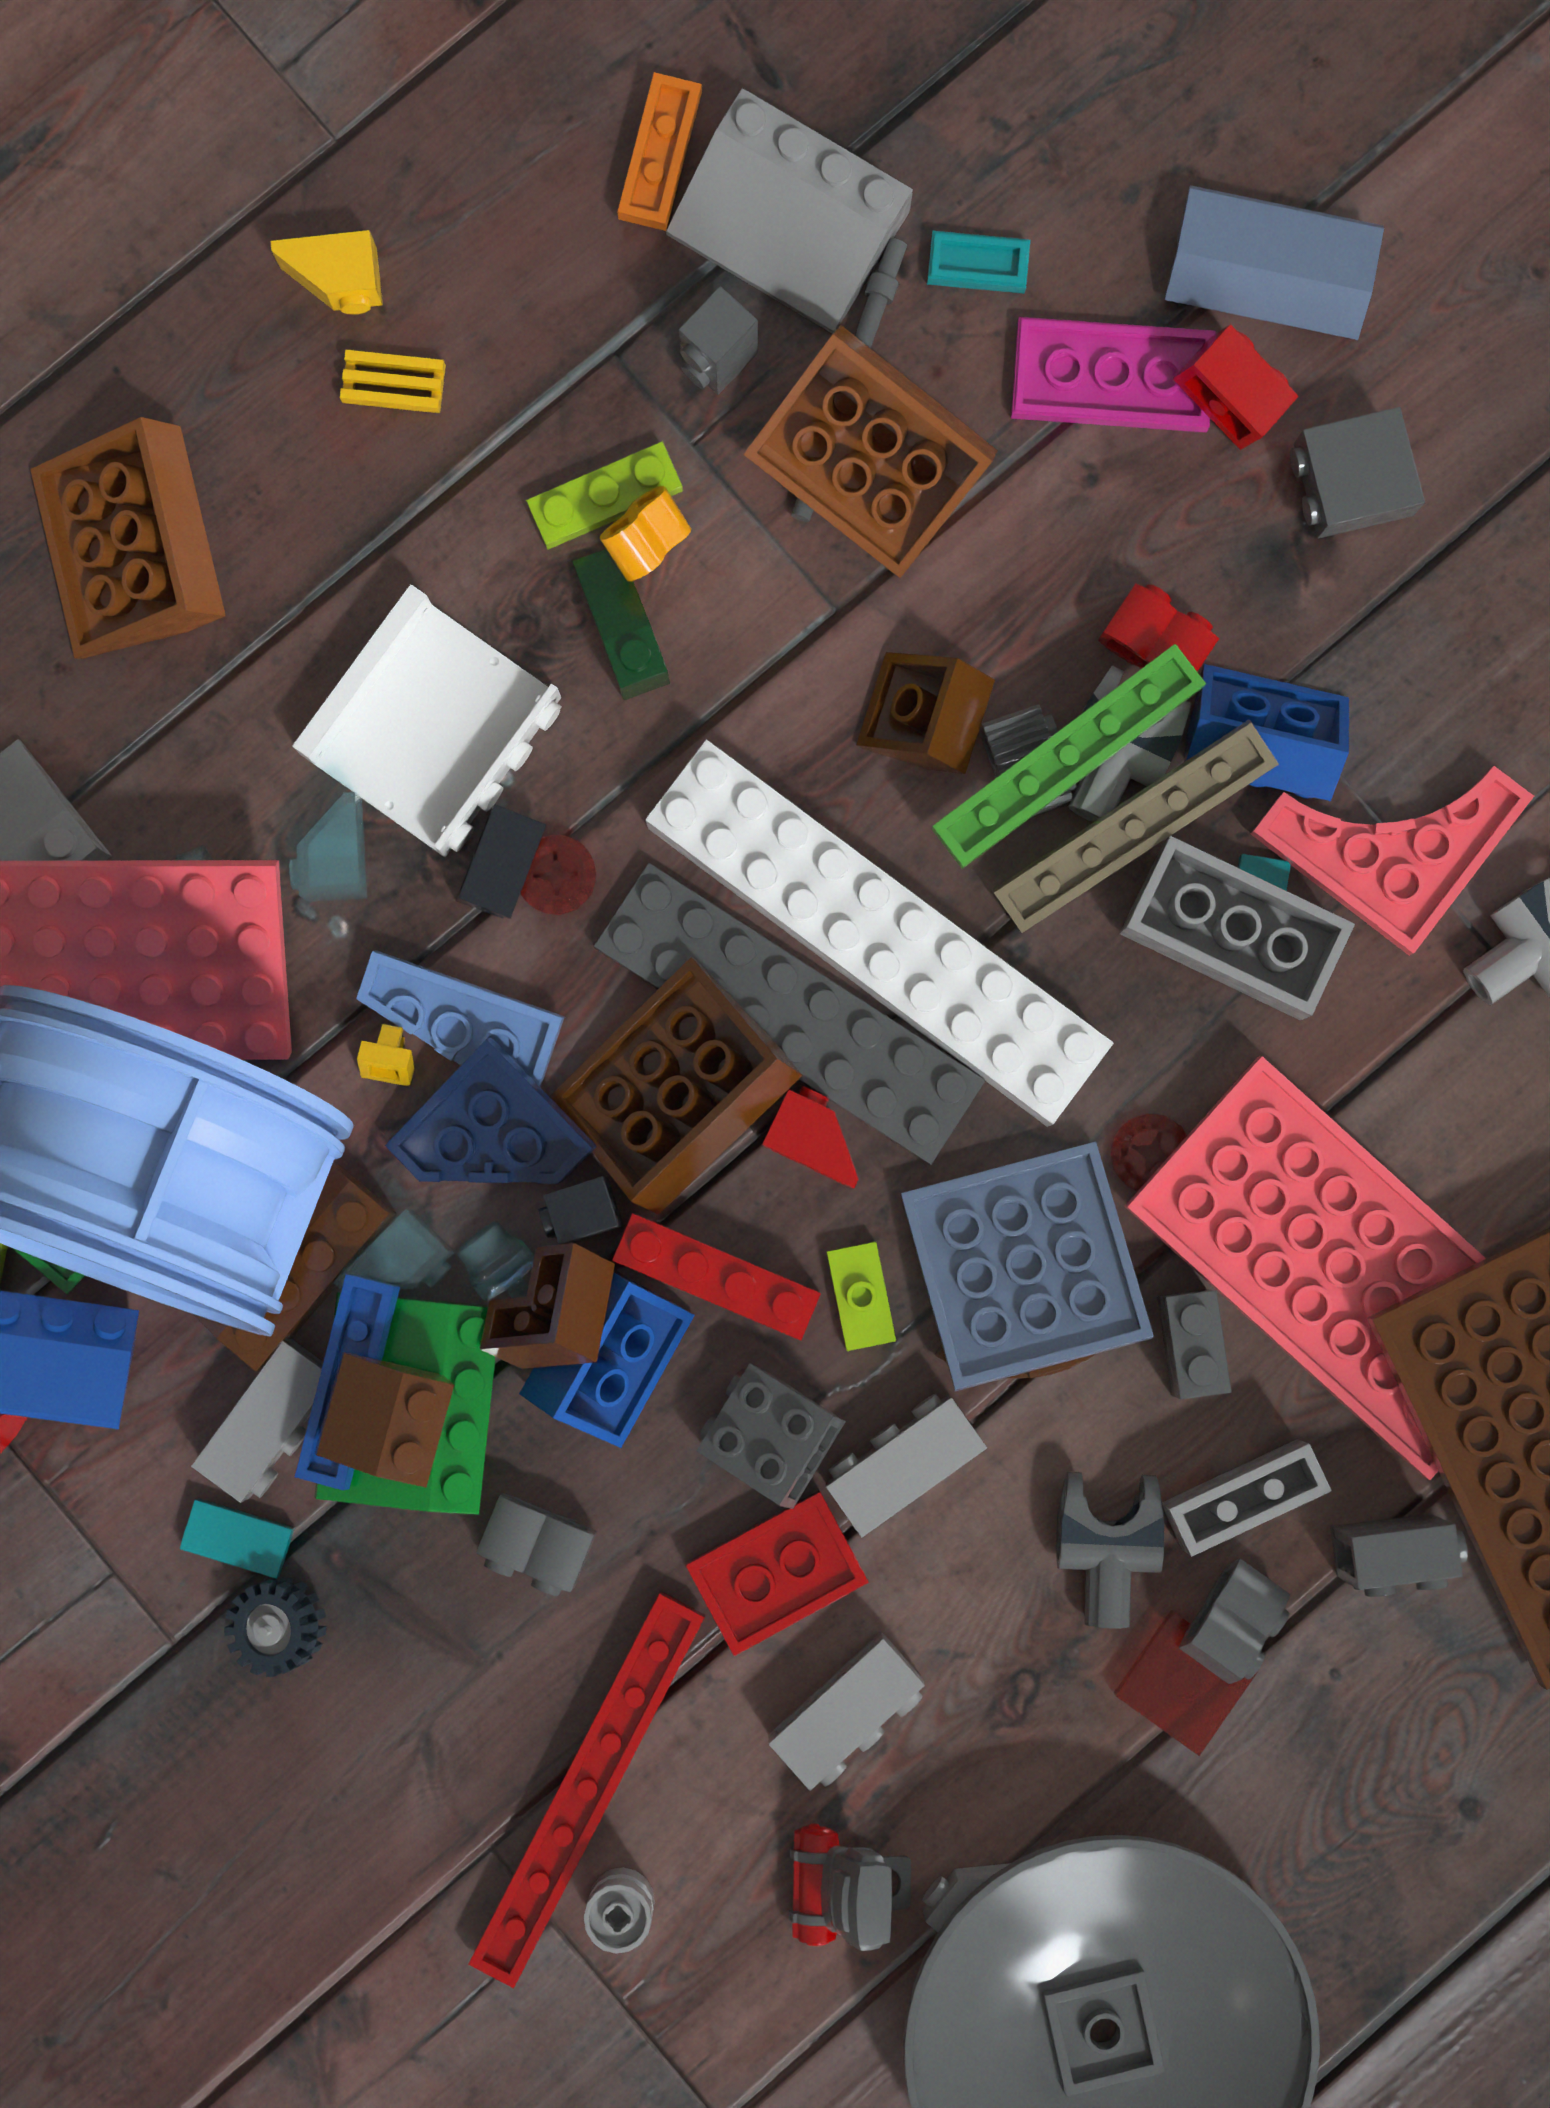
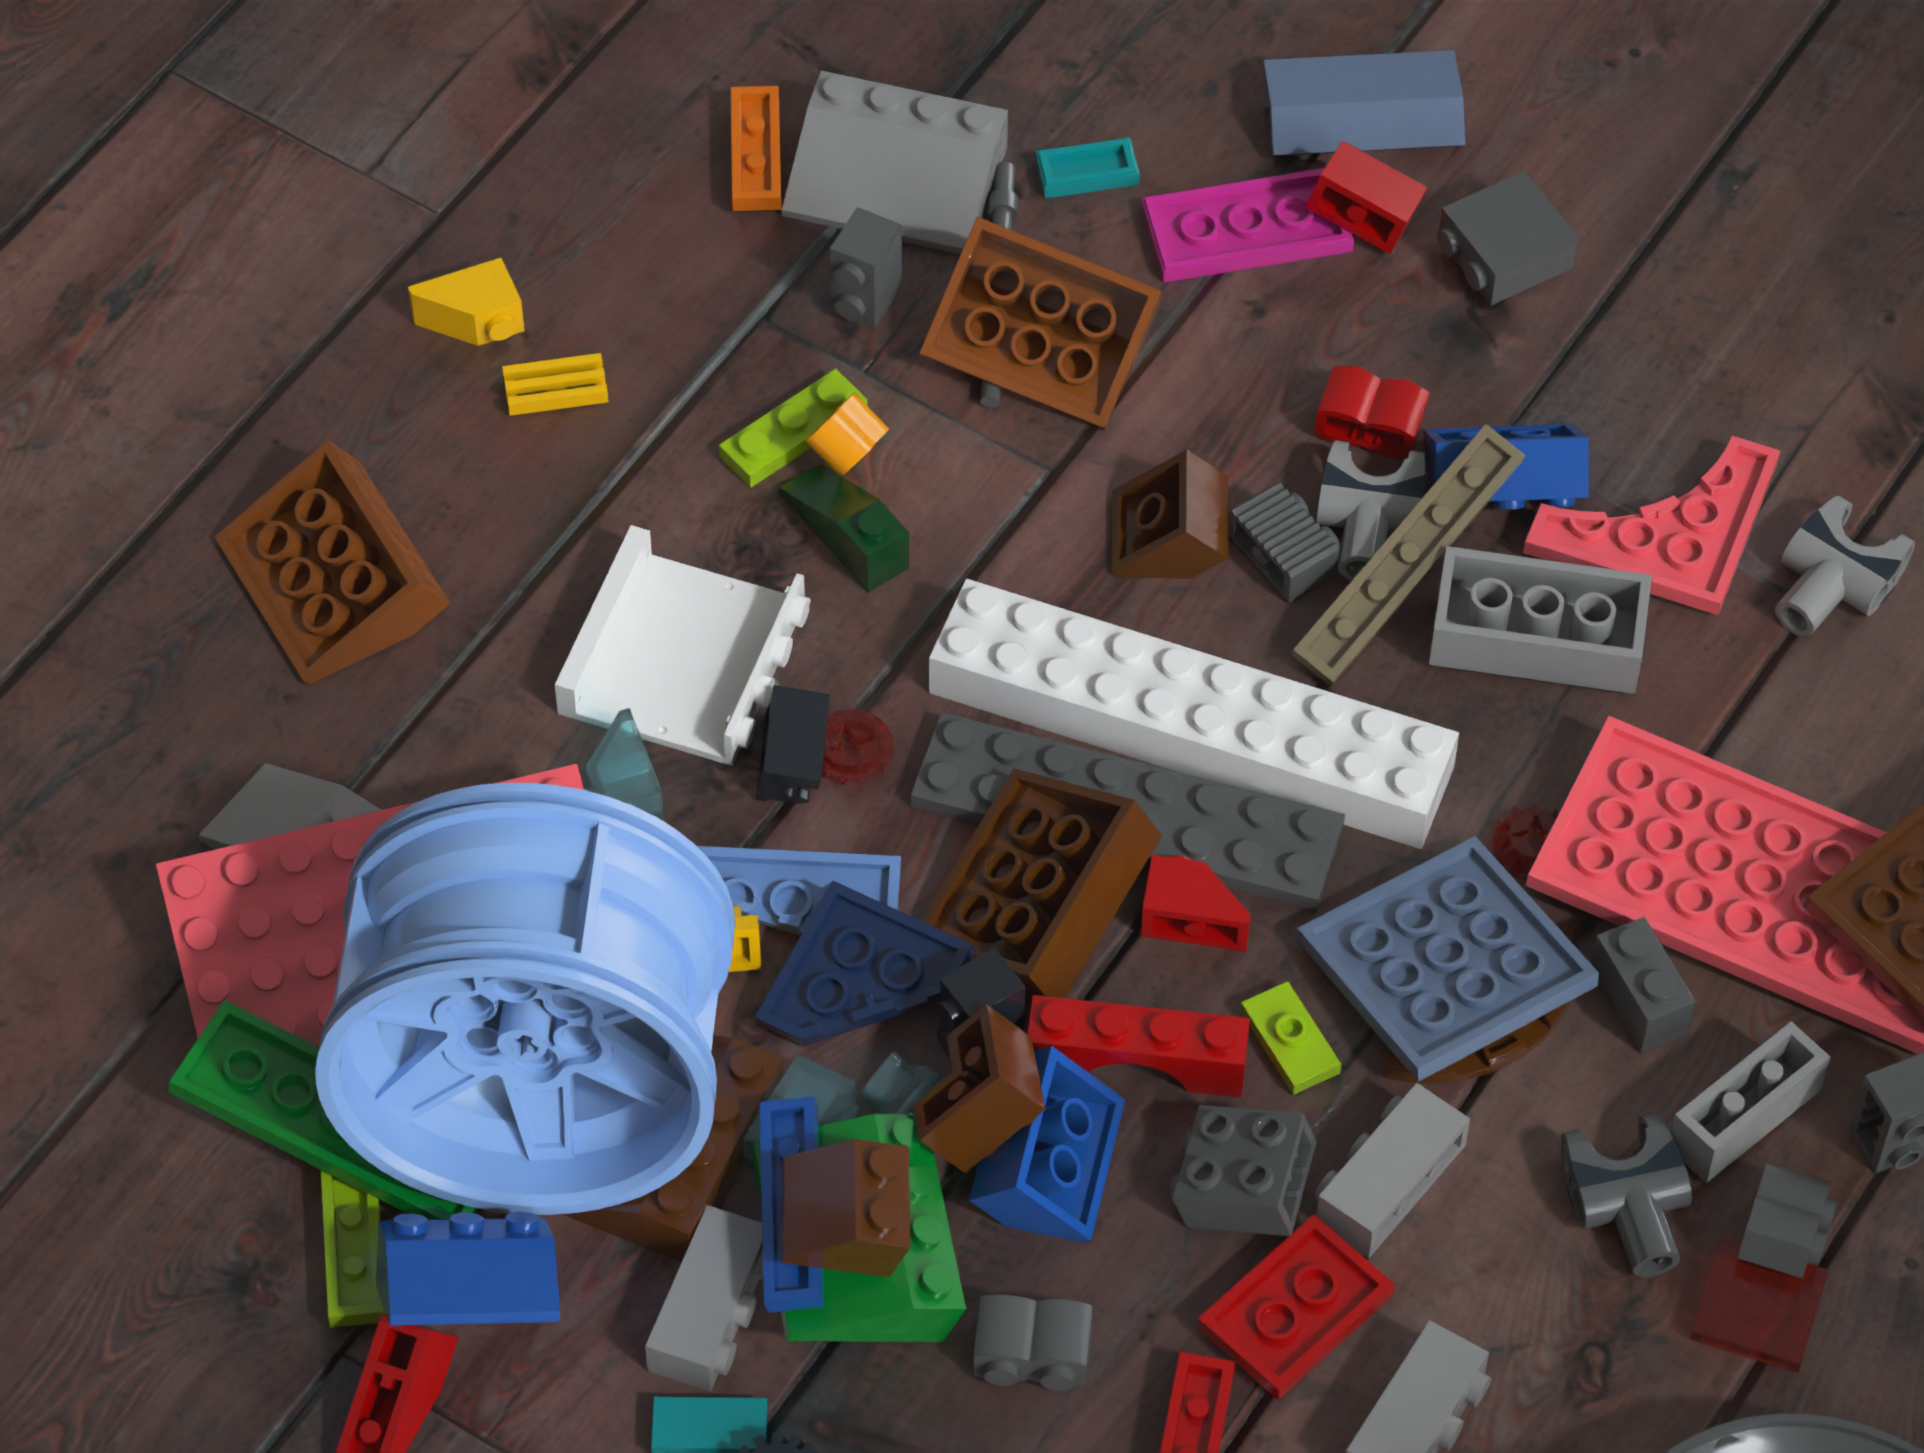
camera: 15 degrees left, 30 degrees down
(1068, 756) = (1321, 507): bright green plate -> none

